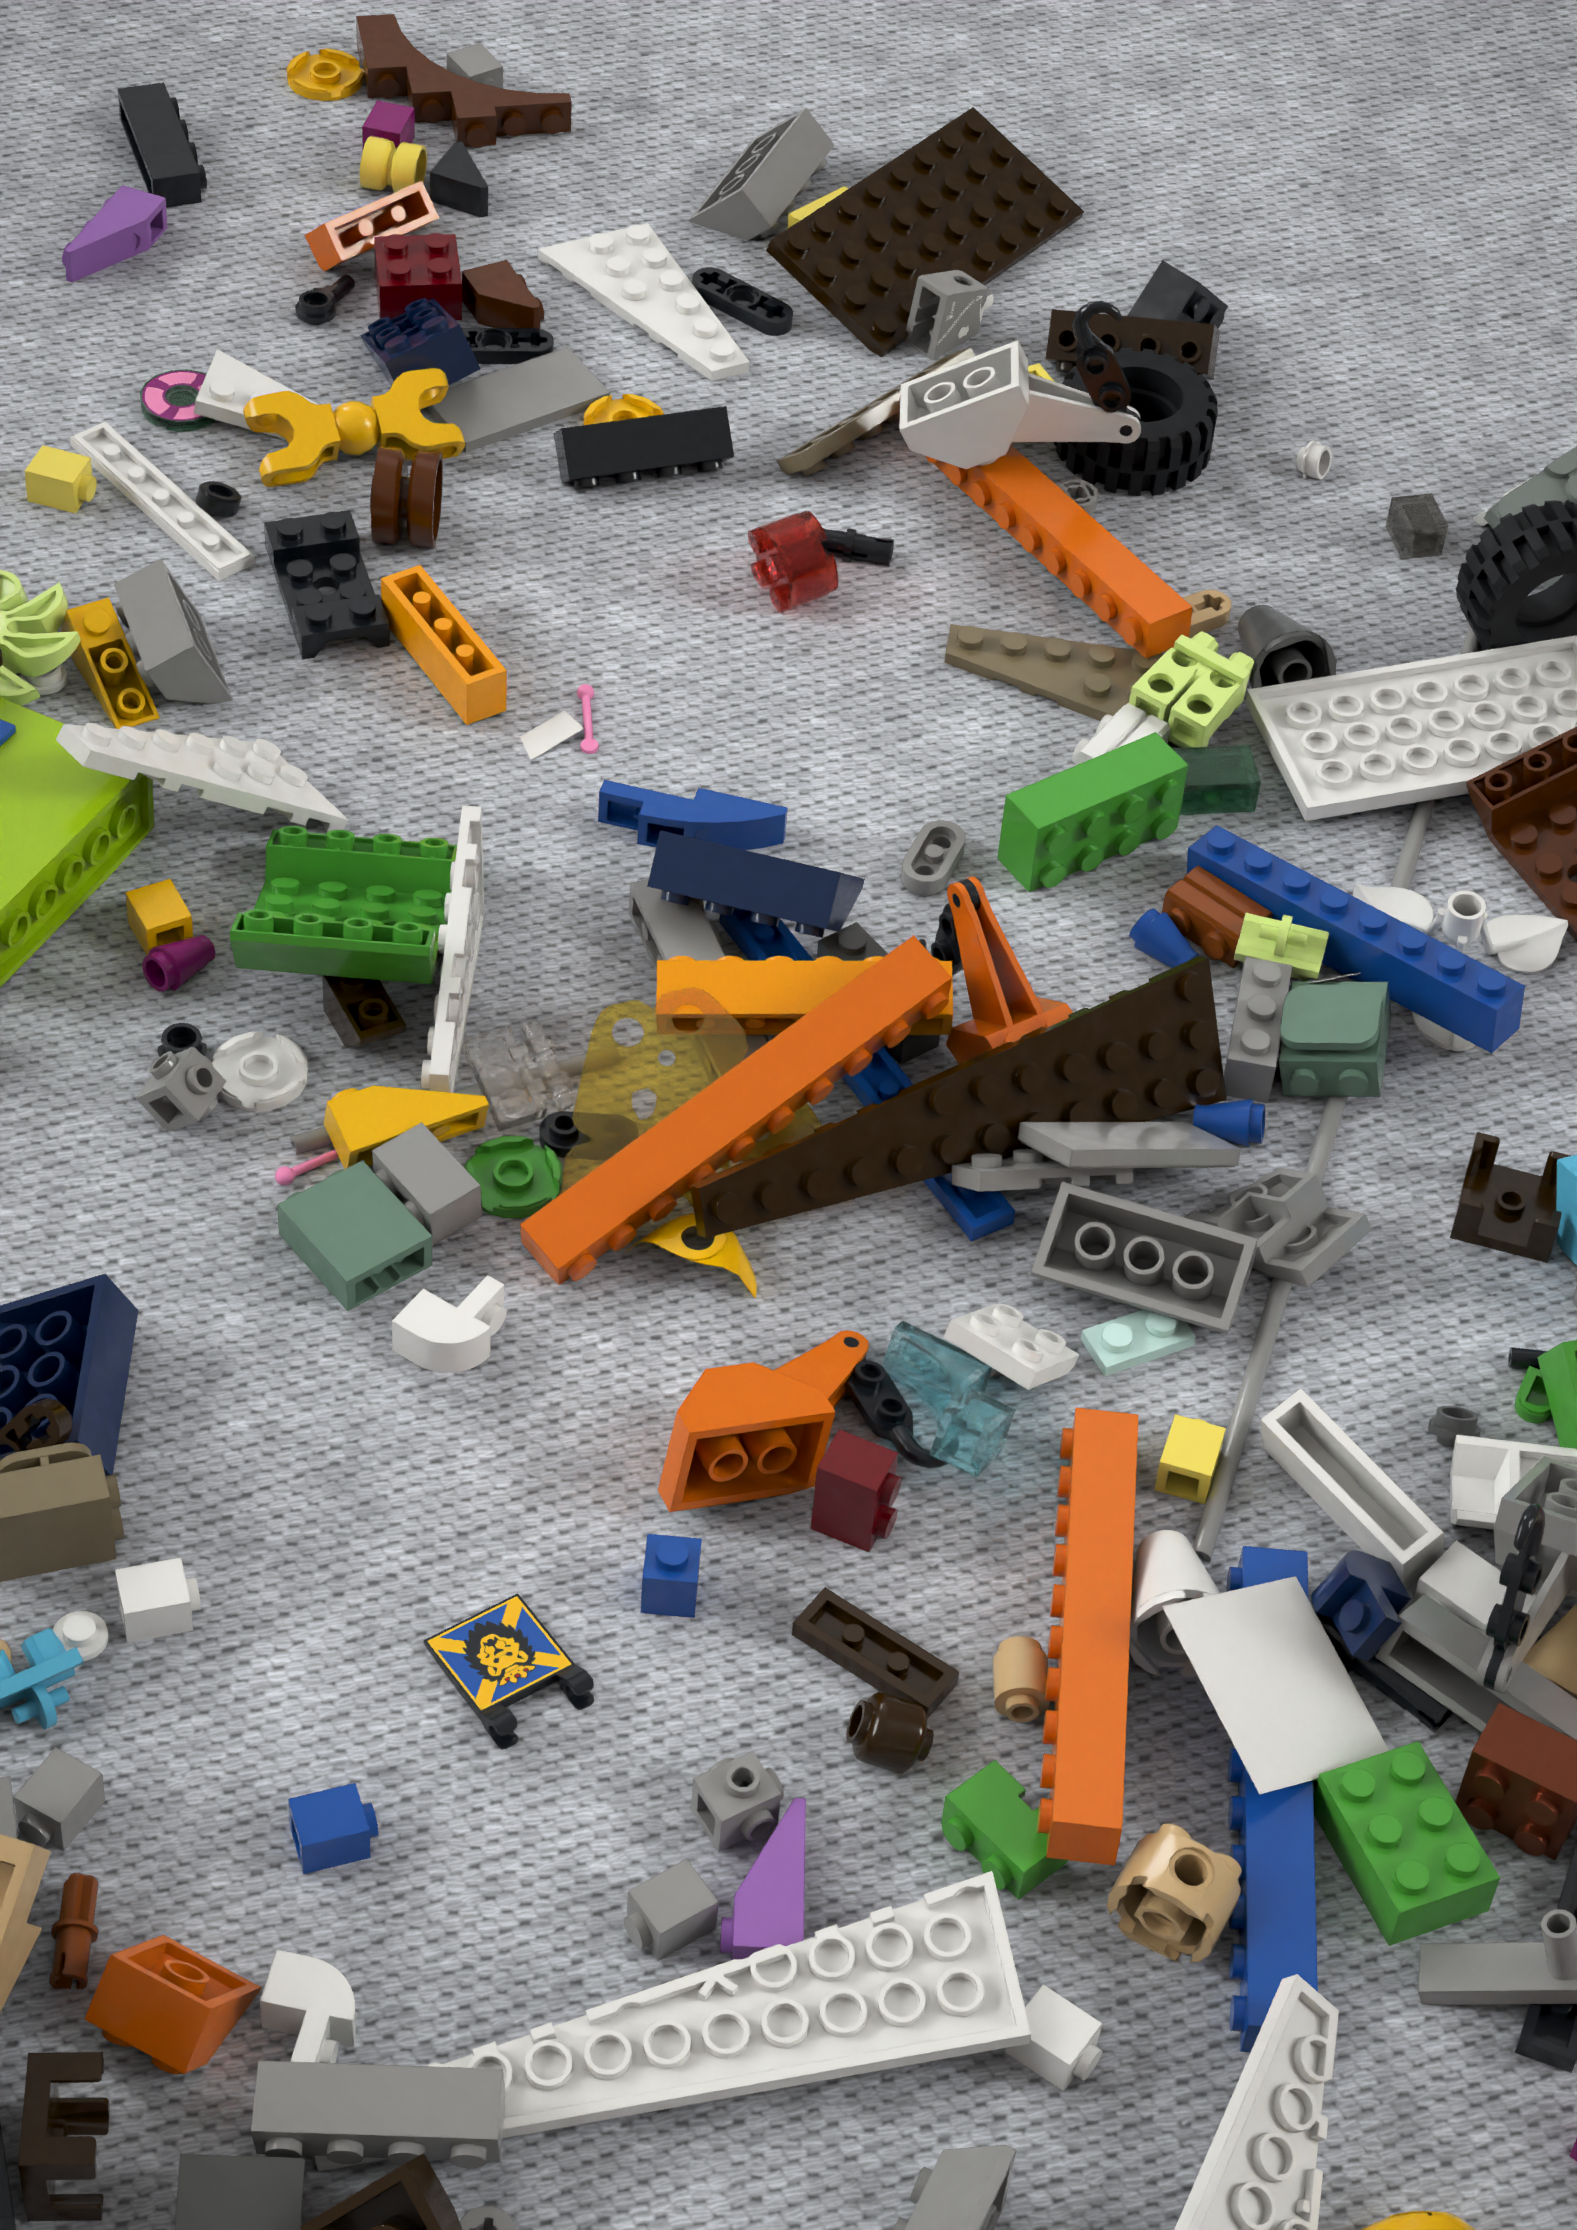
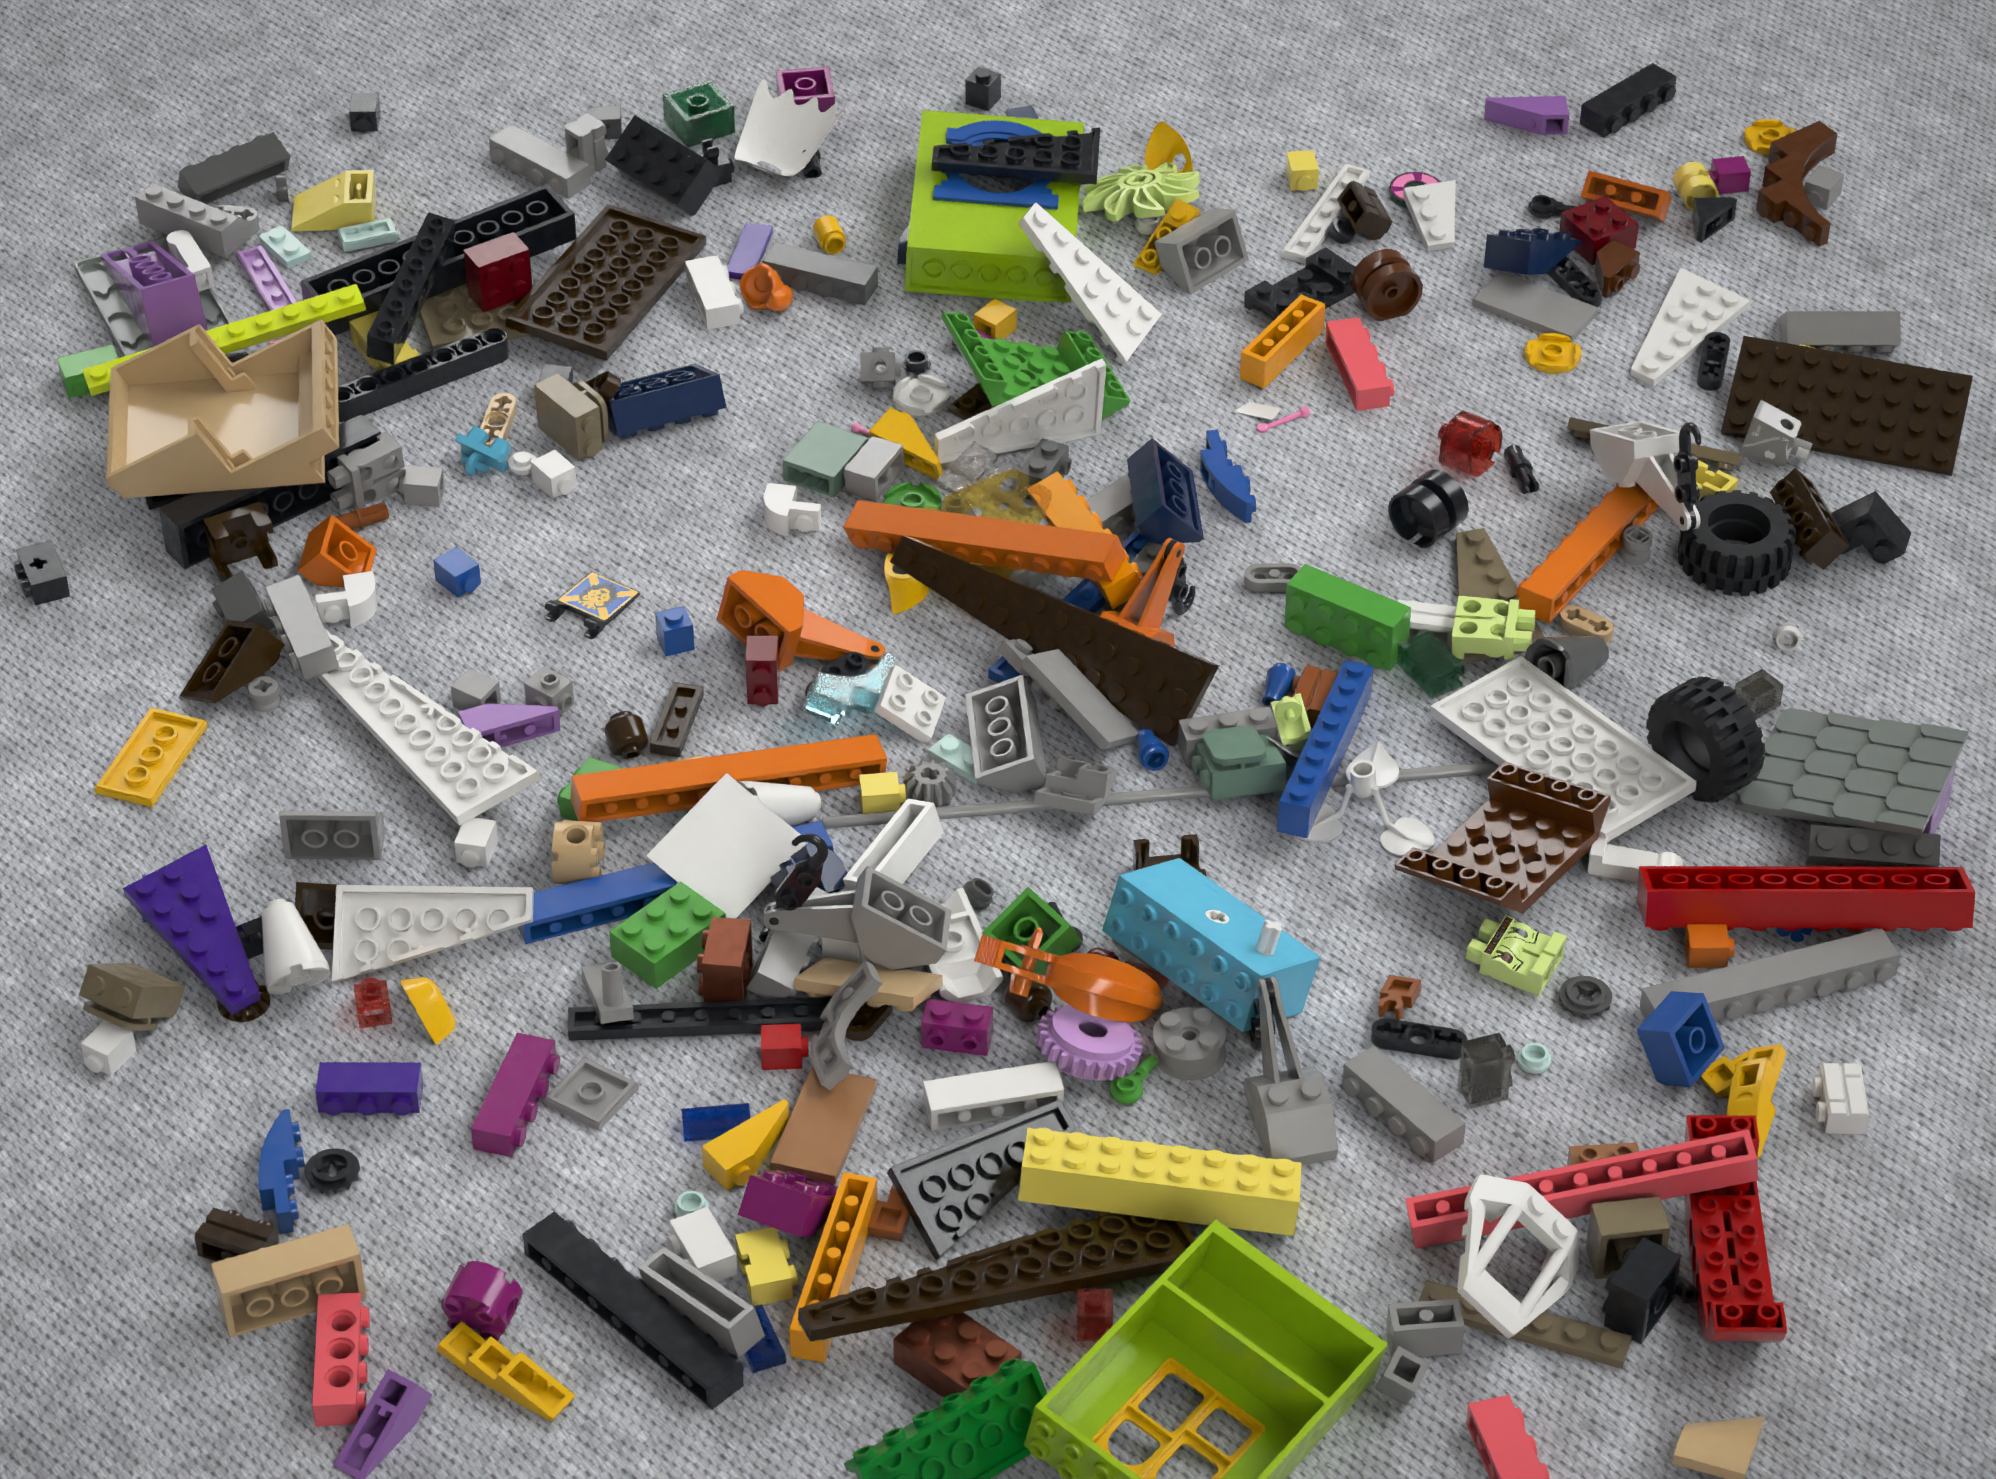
camera: 70 degrees right, 5 degrees down
(208, 457) = (1364, 211): none -> dark brown brick
(353, 427) = (1453, 259): yellow piece -> none
(535, 597) = (1358, 364): none -> coral brick
(557, 995) = (1045, 460): none -> dark grey brick
(644, 445) = (1524, 359): black brick -> none
(911, 646) = (1428, 507): none -> black wheel
(1194, 1389) = (930, 783): none -> light grey gear

